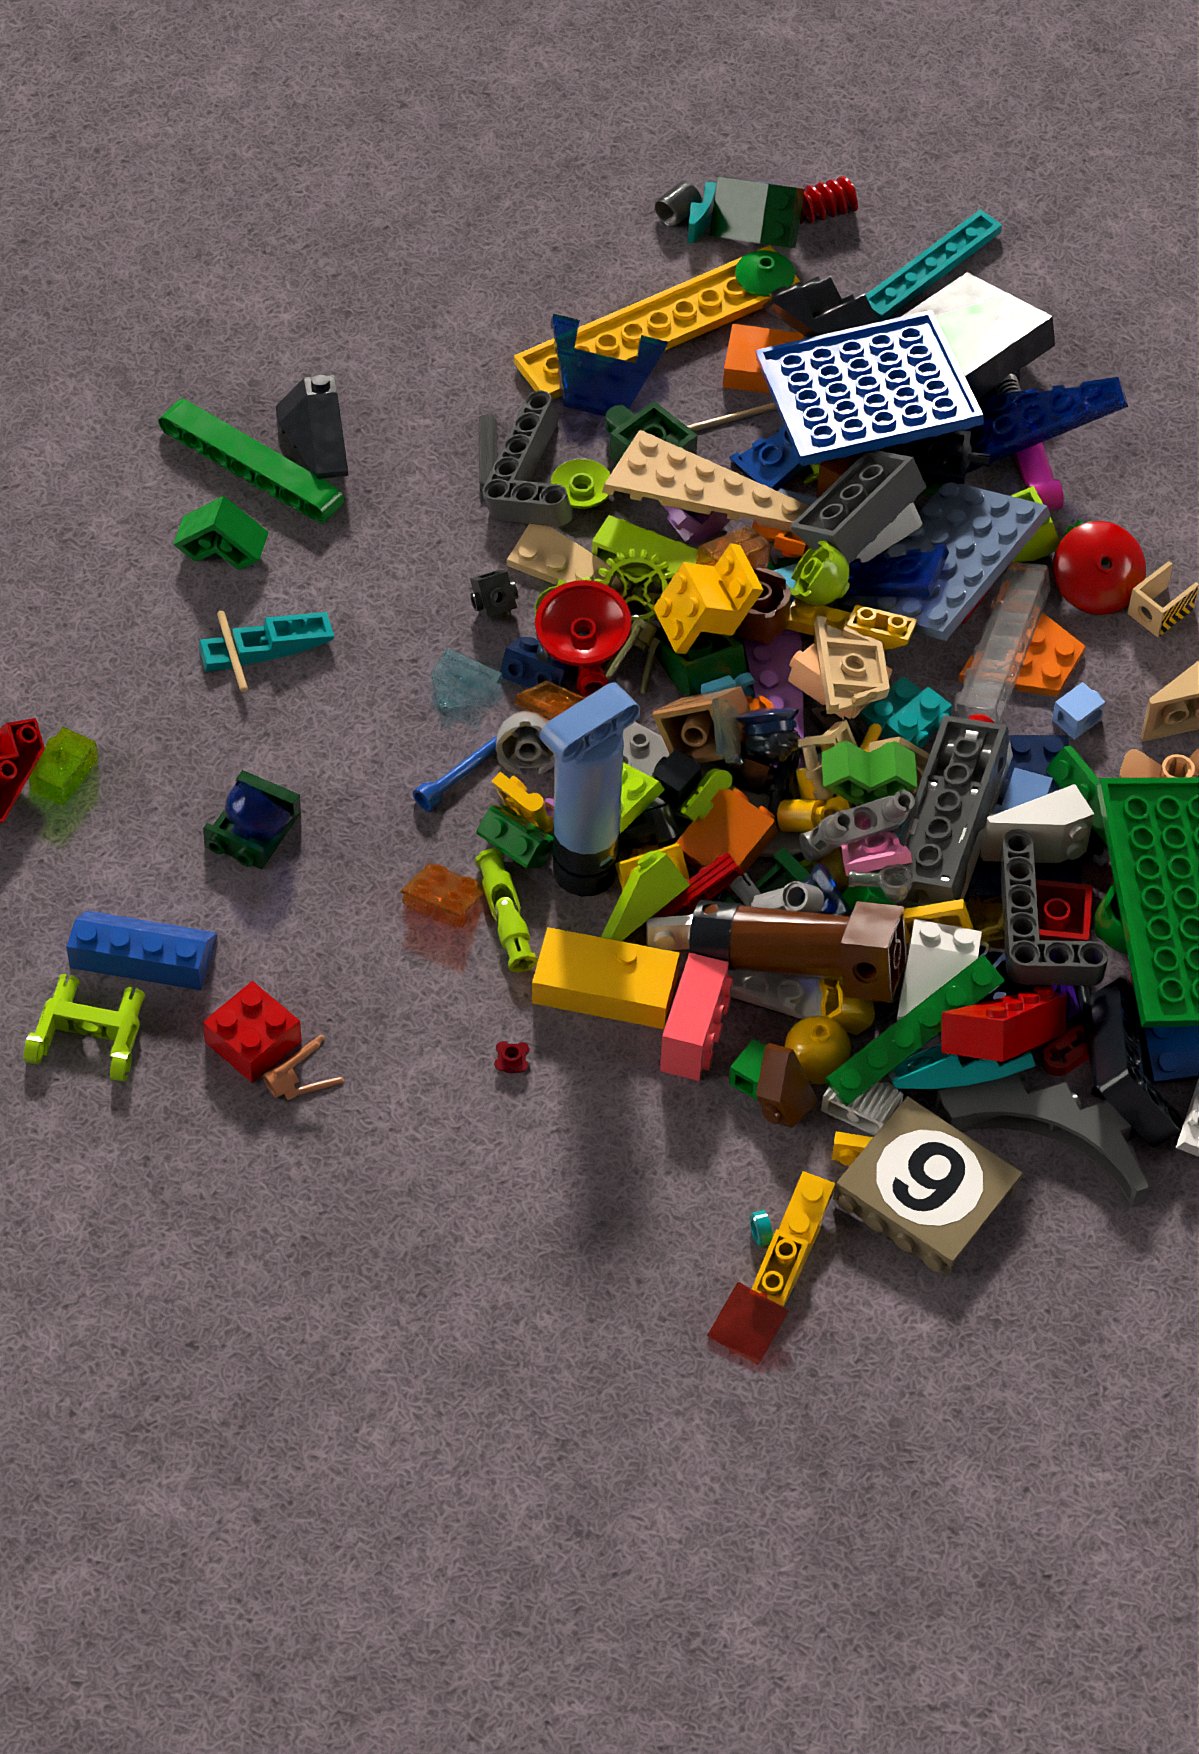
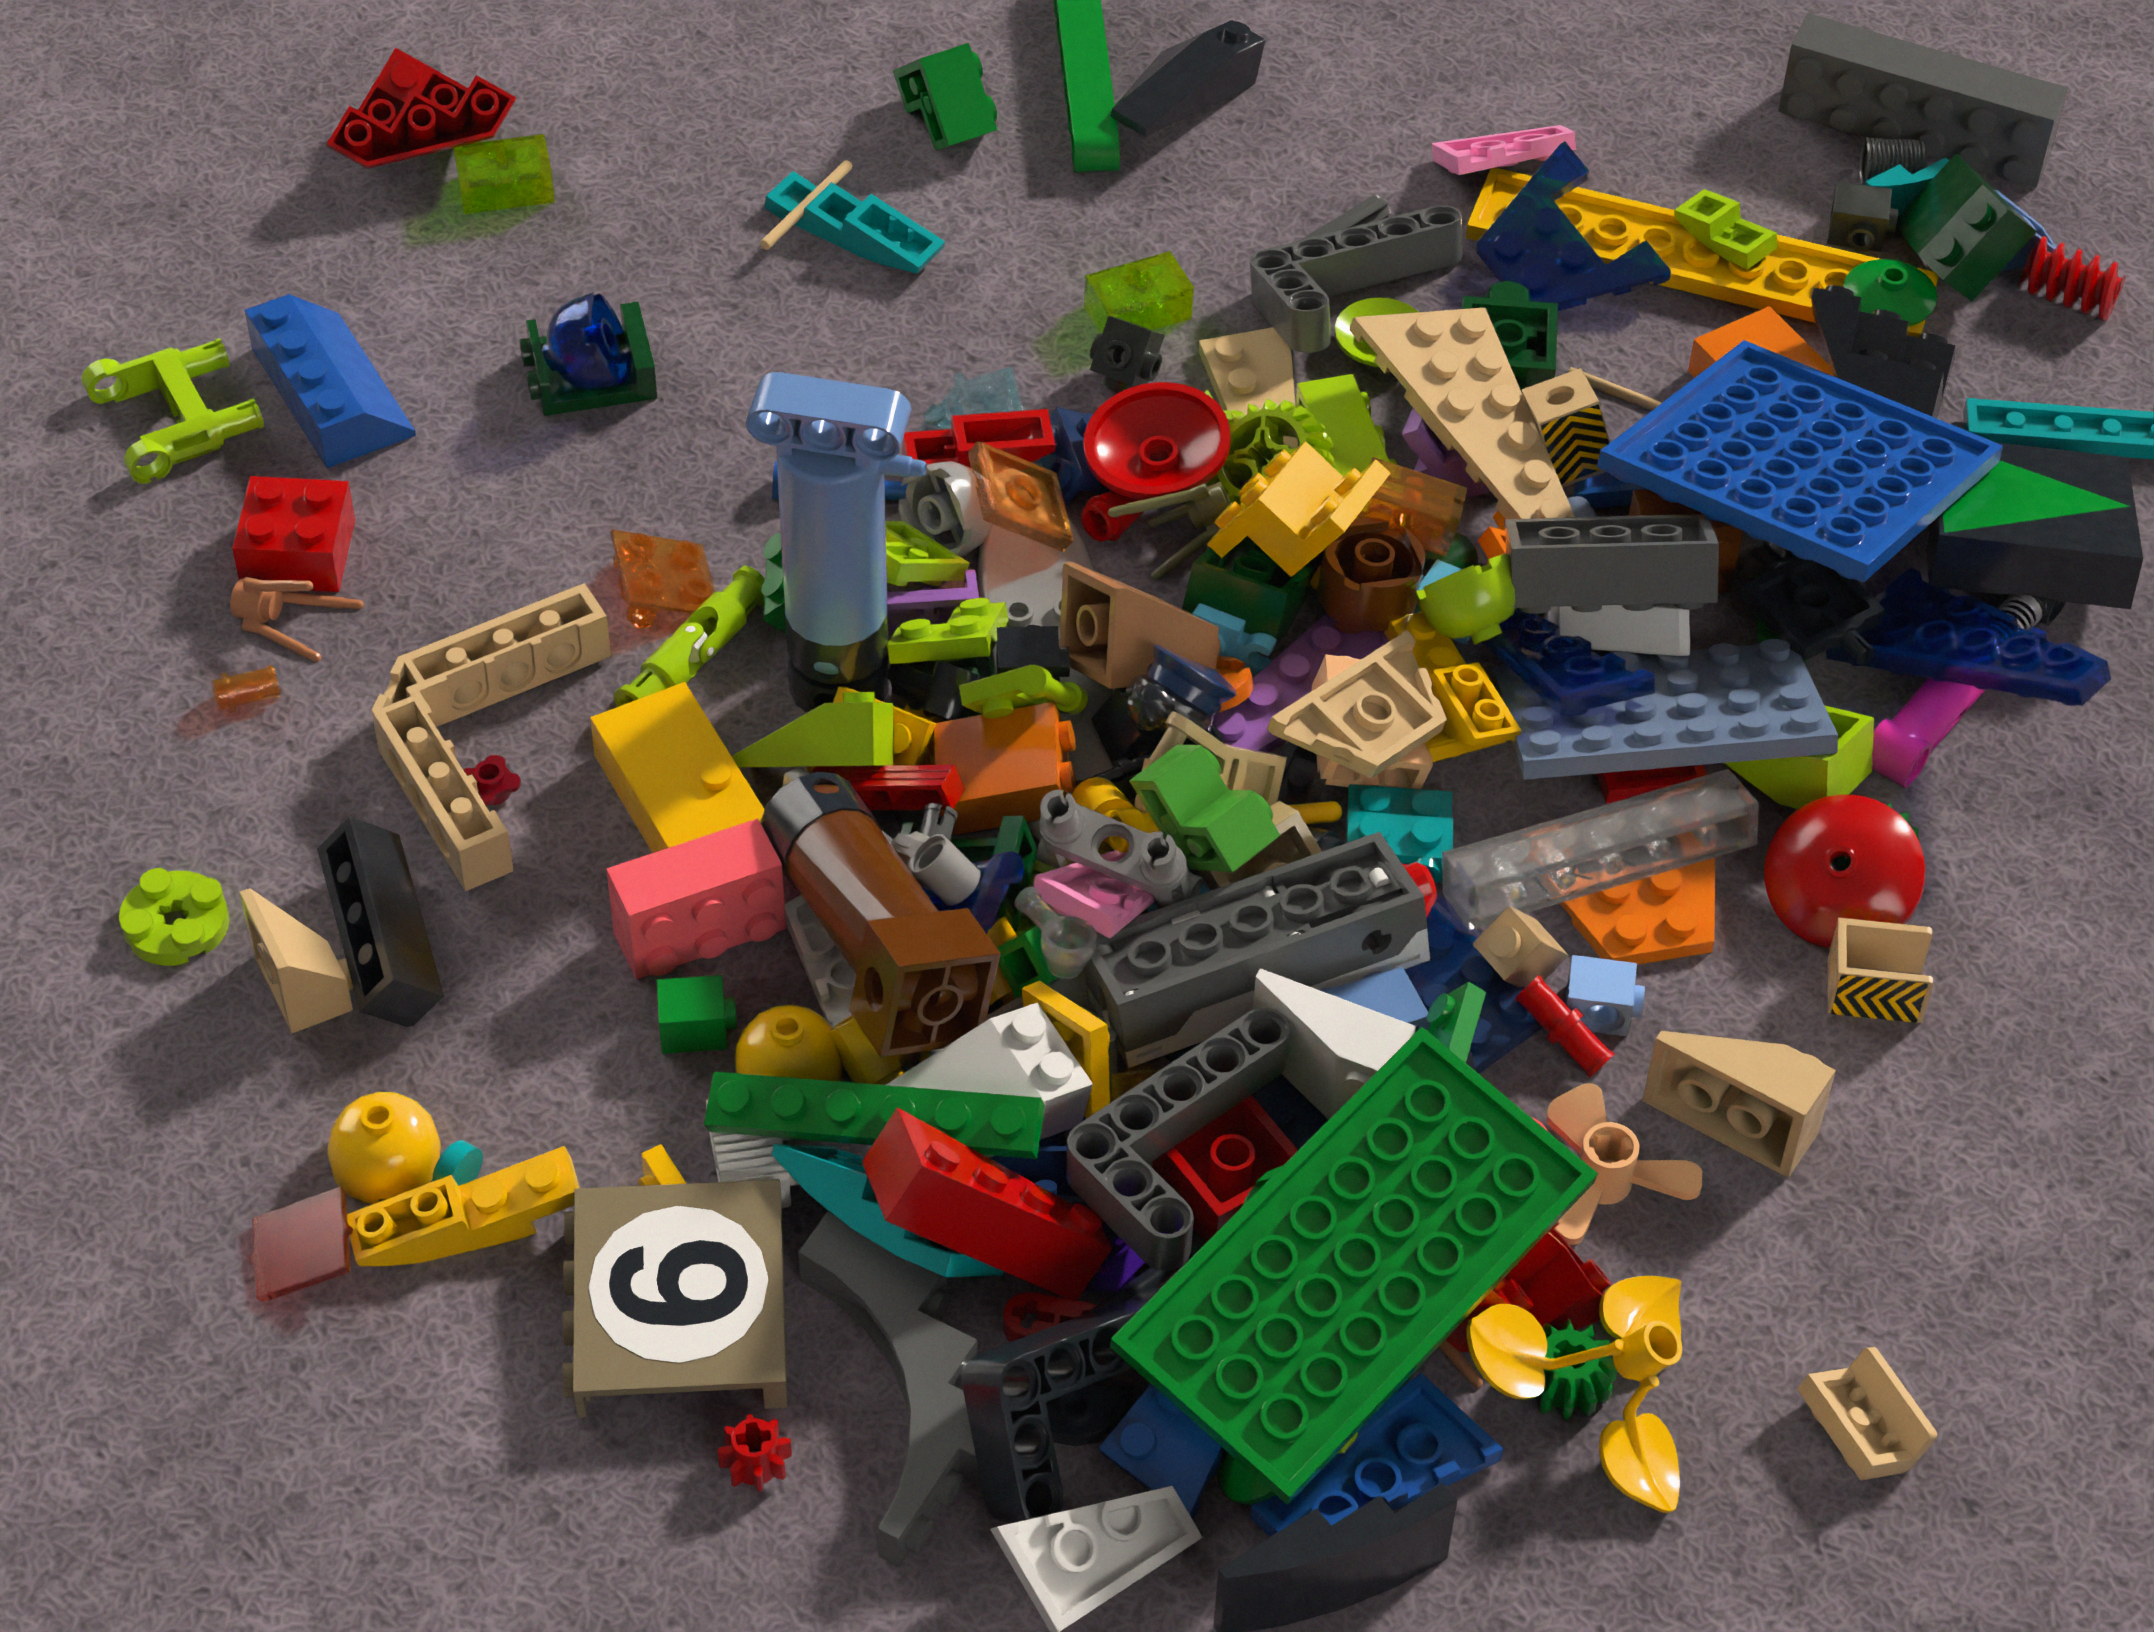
camera: 50 degrees right, 5 degrees down
(336, 1129) = (245, 688): none -> clear orange pin
(451, 561) = (1144, 292): none -> clear neon green brick
(470, 1270) = (161, 893): none -> lime plate
(474, 1072) = (461, 678): none -> tan brick
(493, 701) = (1019, 433): none -> red slope
(506, 343) = (1501, 149): none -> bright pink wing
(535, 775) = (917, 558): none -> lime plate
(567, 1216) = (296, 965): none -> tan slope
(574, 1160) = (380, 923): none -> black brick
(653, 301) = (1719, 227): none -> lime slope
(657, 159) = (1910, 91): none -> dark grey brick
(700, 244) = (1861, 216): none -> pearl dark grey brick
(716, 1252) = (383, 1147): none -> yellow cylinder
(726, 731) = (1116, 643): clear light blue piece -> none
(750, 458) = (1569, 424): none -> piece
(783, 1087) = (675, 1054): reddish brown slope -> none
(1029, 719) = (1519, 948): none -> tan brick
(1041, 1223) = (757, 1467): none -> red gear
(1085, 736) = (1564, 1026): none -> red pin

